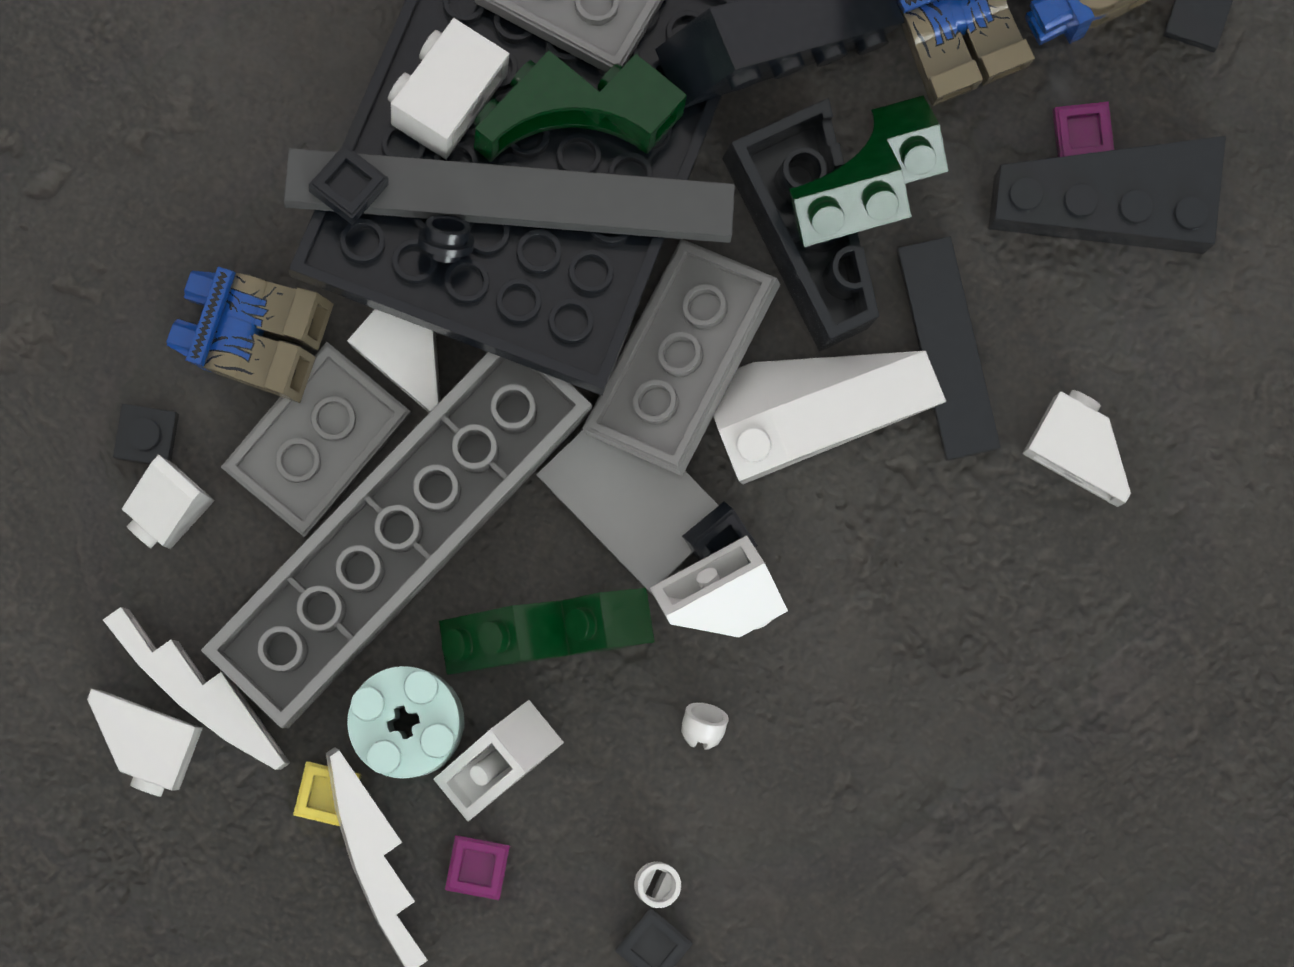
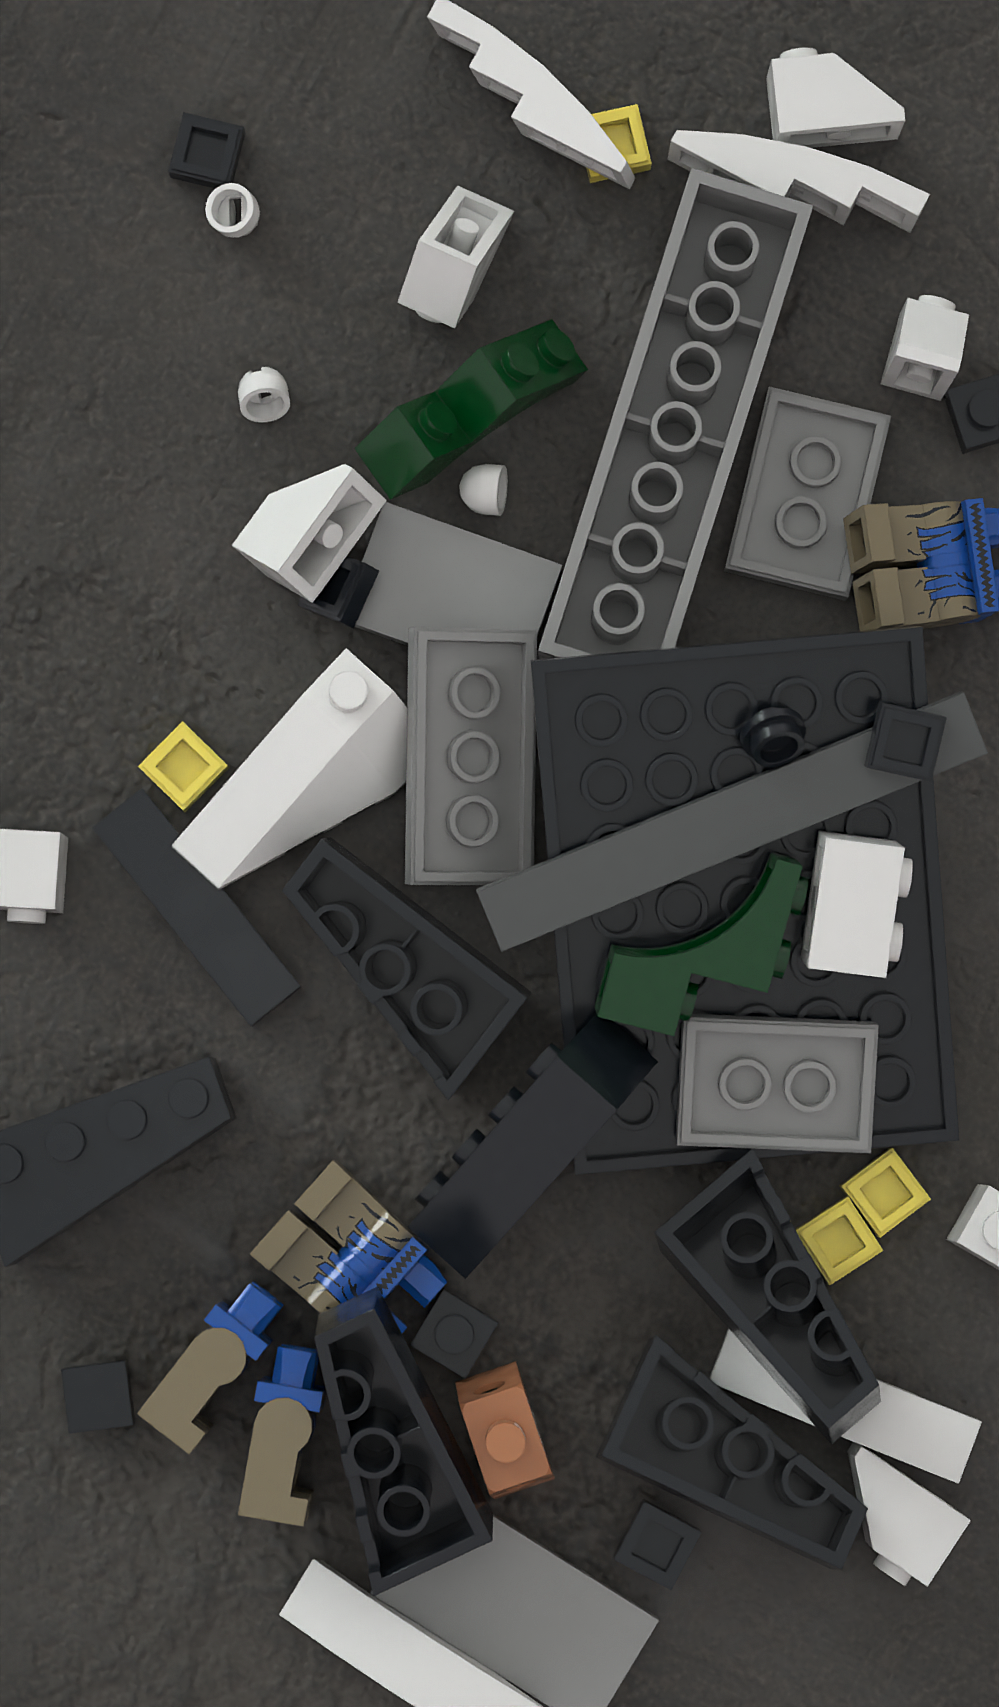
camera: 155 degrees right, 0 degrees up
(378, 705) = (569, 211): light aqua brick -> none
(401, 353) = (757, 610): white slope -> none
(477, 867) = (424, 144): magenta tile -> none
(567, 564) = (485, 489): none -> white hinge
(872, 185) = (357, 1016): arch -> none
(906, 463) = (183, 766): none -> light yellow tile
(1083, 129) = (162, 1209): magenta tile -> none

